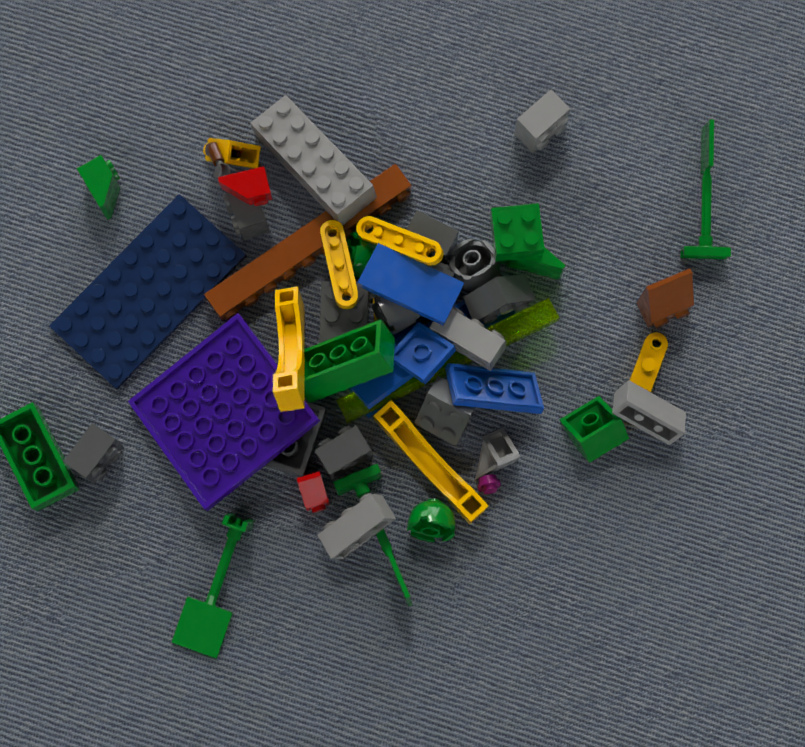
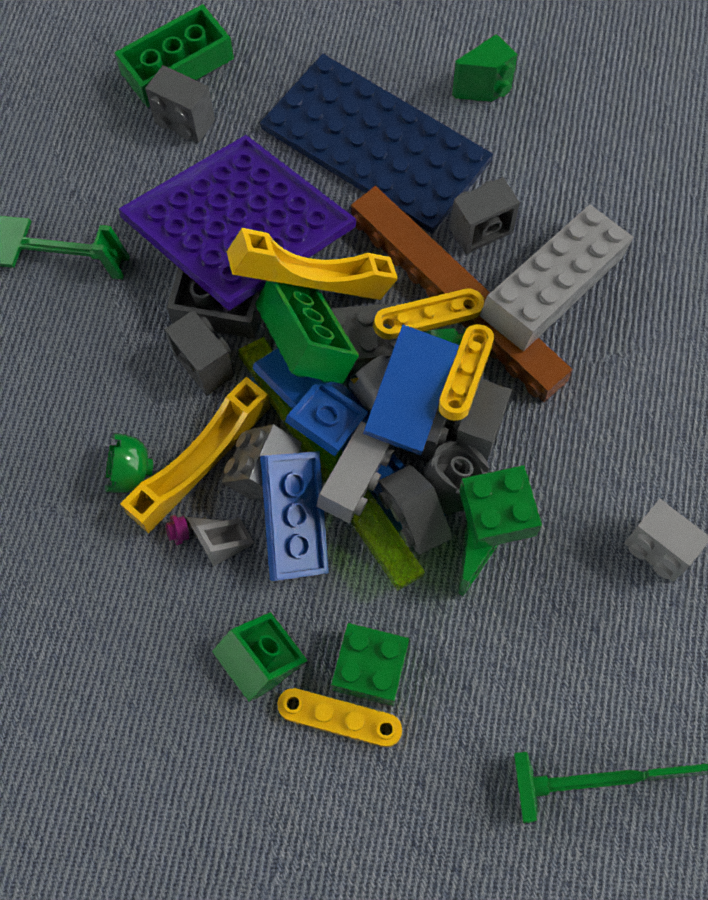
camera: 85 degrees right, 10 degrees down
(233, 153) = (548, 193): yellow torso -> none
(249, 186) = (506, 197): red slope -> none
(313, 492) = (150, 326): red slope -> none
(356, 526) = (111, 375): light grey brick -> none
(359, 482) = (64, 423): green piece -> none
(610, 348) = (370, 664): none -> green brick
(649, 412) = (282, 722): light grey brick -> none
(667, 299) = (445, 732): dark orange slope -> none

